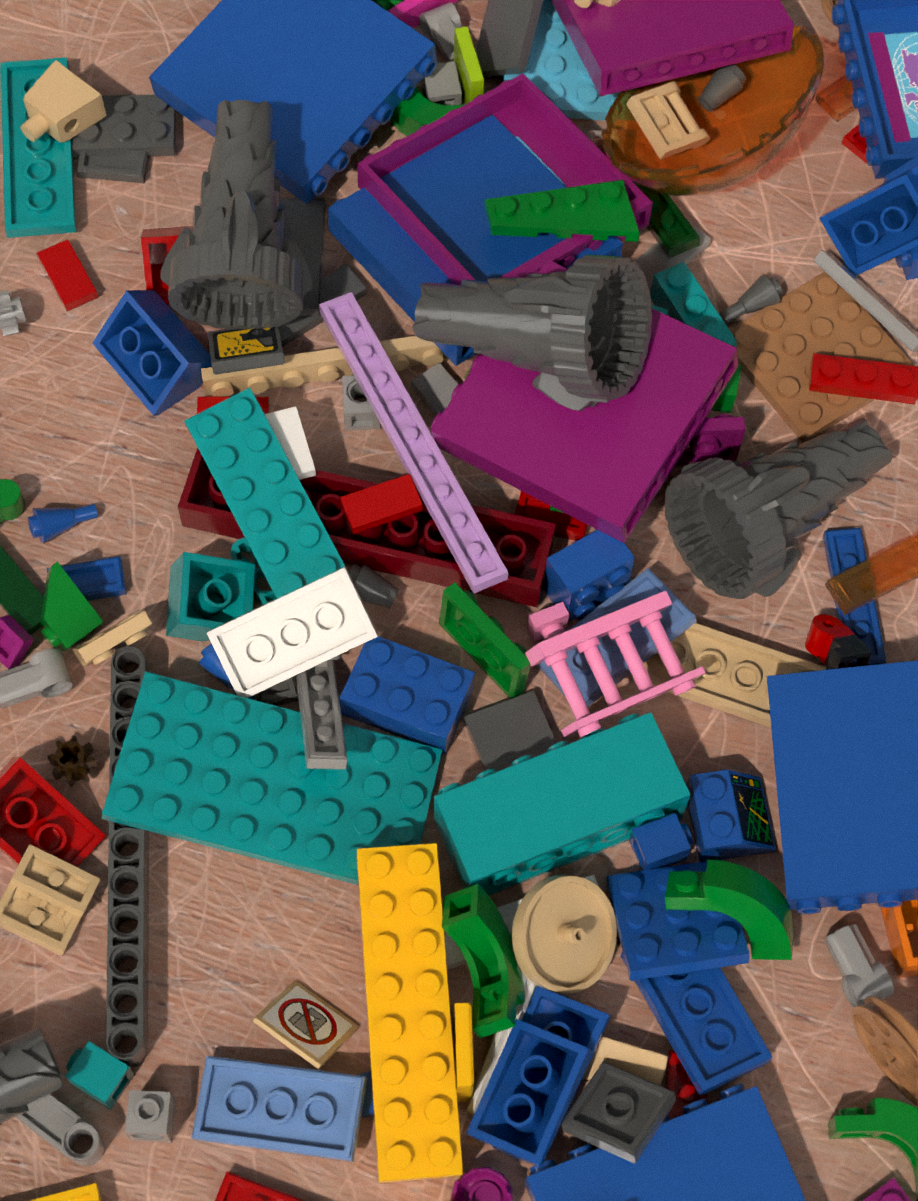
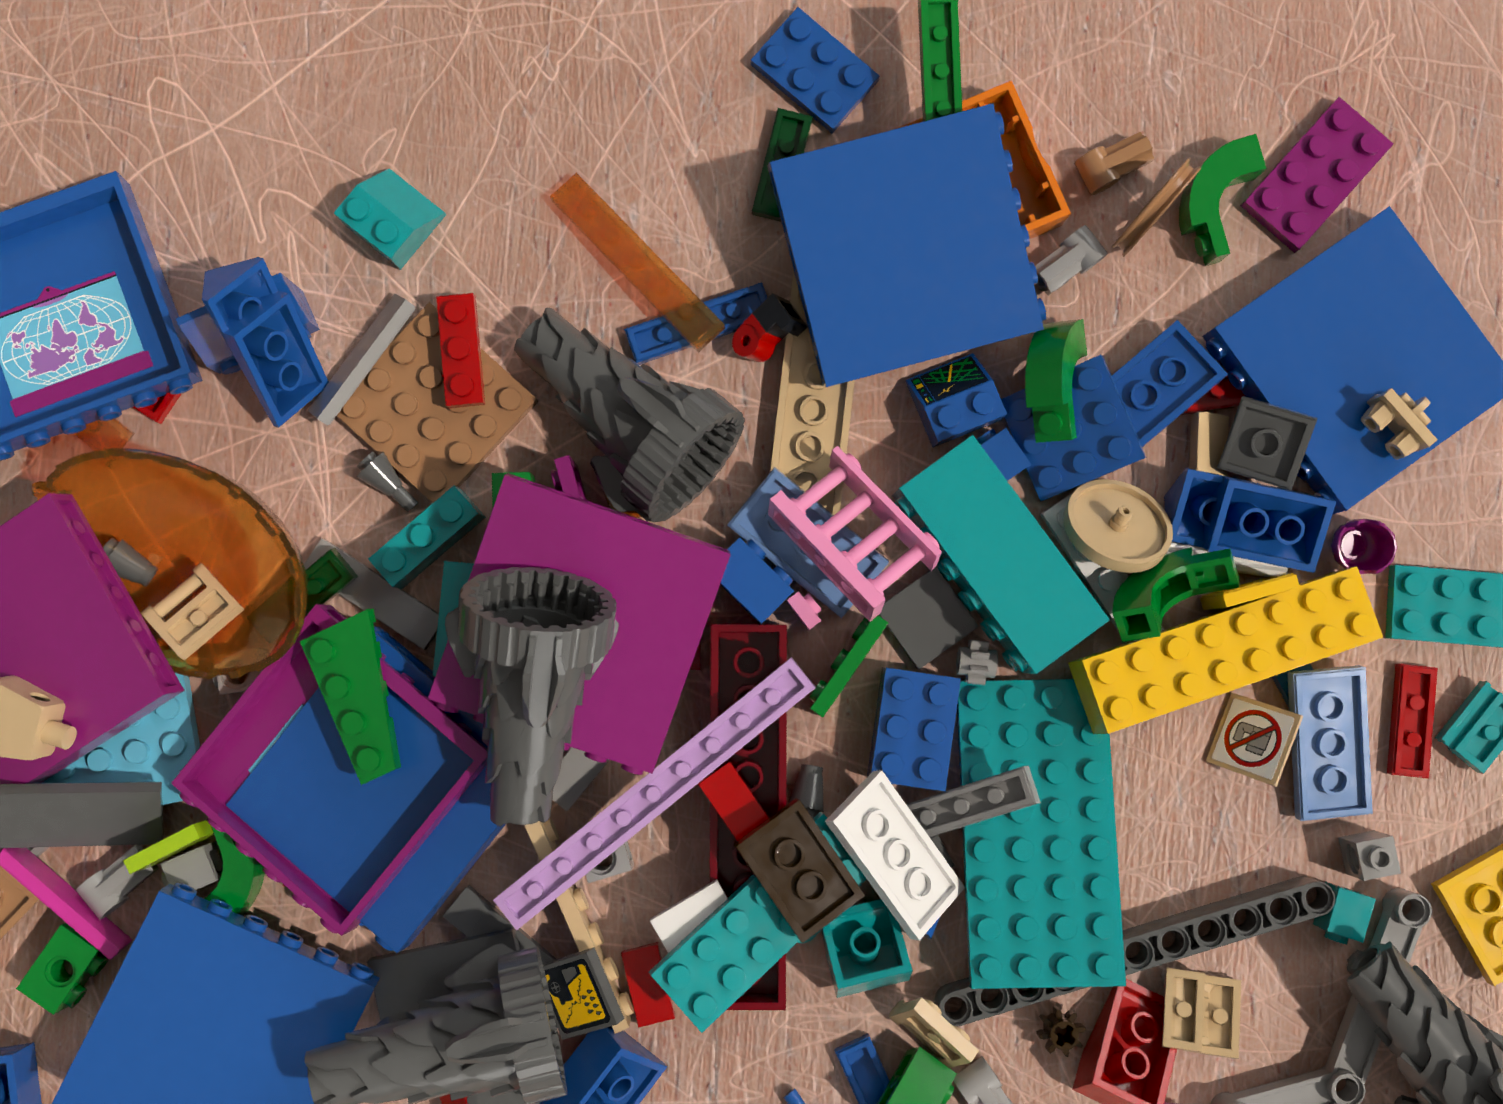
camera: 105 degrees left, 20 degrees up
(306, 531) = (799, 870): none -> dark brown plate
(456, 766) = (976, 662): none -> light grey gear

